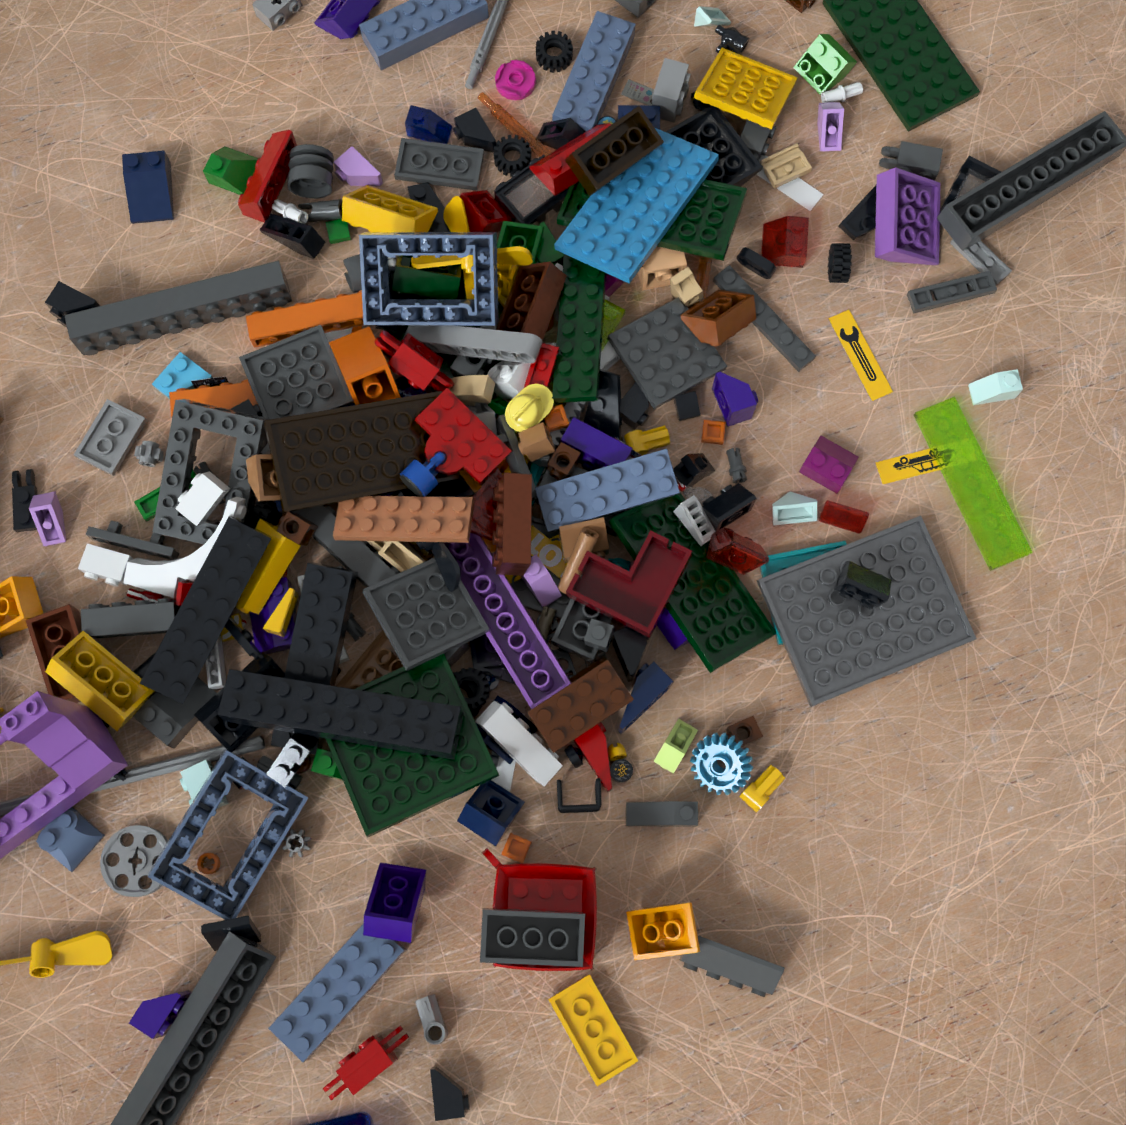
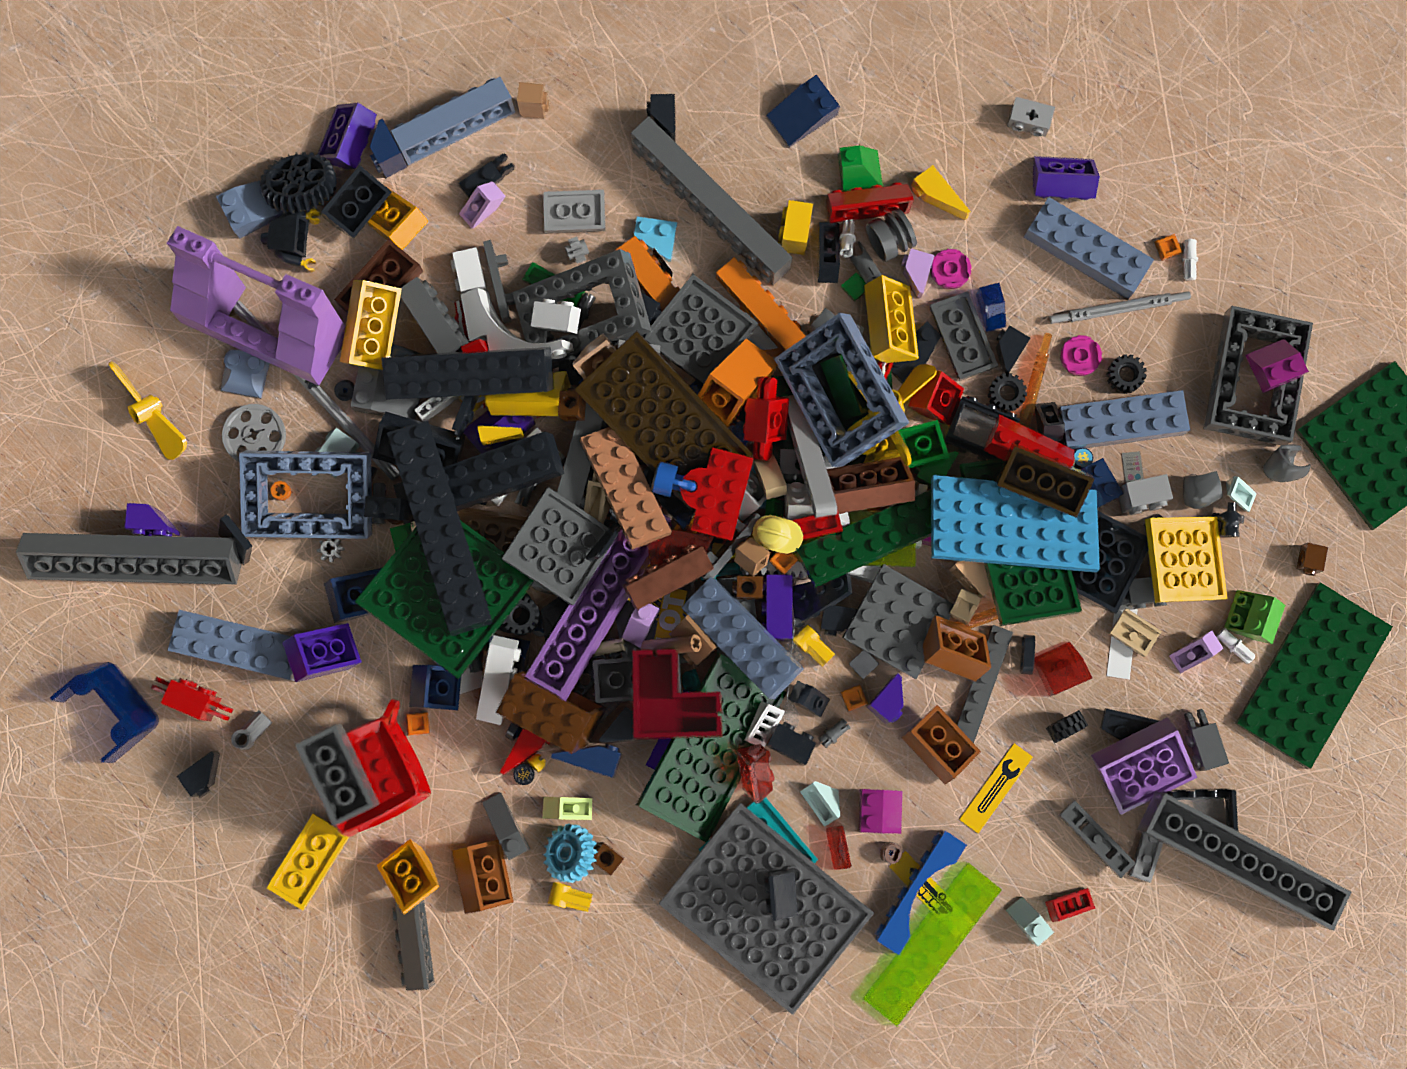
camera: 60 degrees right, 5 degrees up
(147, 746) = (344, 390): none -> black tile
(250, 244) = (795, 227): none -> yellow brick
(300, 113) = (937, 192): none -> yellow slope
(350, 847) = (343, 593): none -> dark blue slope
(373, 142) = (950, 269): none -> dark pink tile
(579, 808) = (465, 743): black piece -> none
(599, 635) = (615, 697): dark grey brick -> none
(692, 44) = (1201, 490): none -> dark grey piece
(698, 862) = (482, 876): none -> dark orange slope
(798, 377) = (941, 745): none -> dark orange slope
(871, 474) = (890, 852): none -> reddish brown tile
(945, 506) = (896, 931): none -> blue arch
(997, 361) = (1057, 909): none -> red slope

